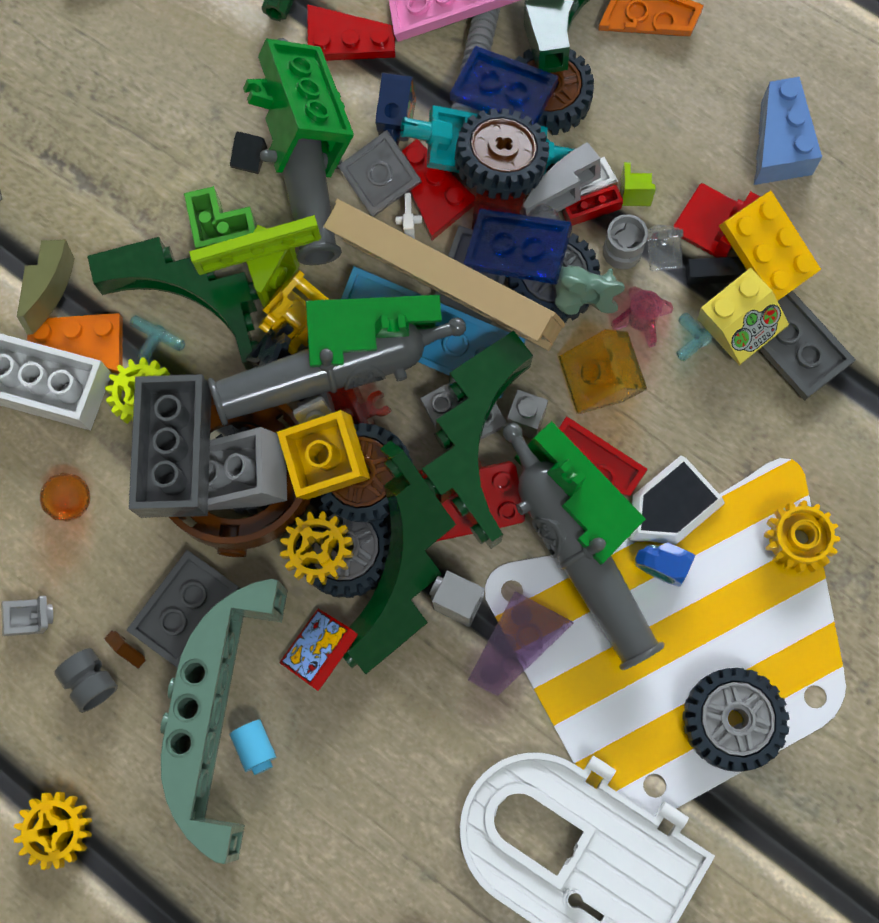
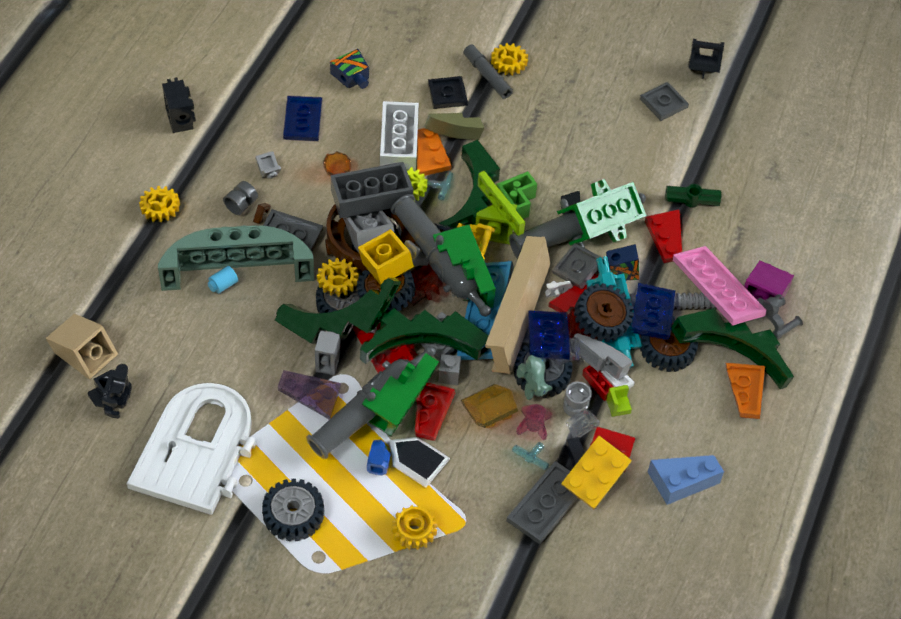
camera: 65 degrees right, 20 degrees down
(318, 649) = (282, 295): tile -> none
(743, 316) = (545, 466): light yellow slope -> none

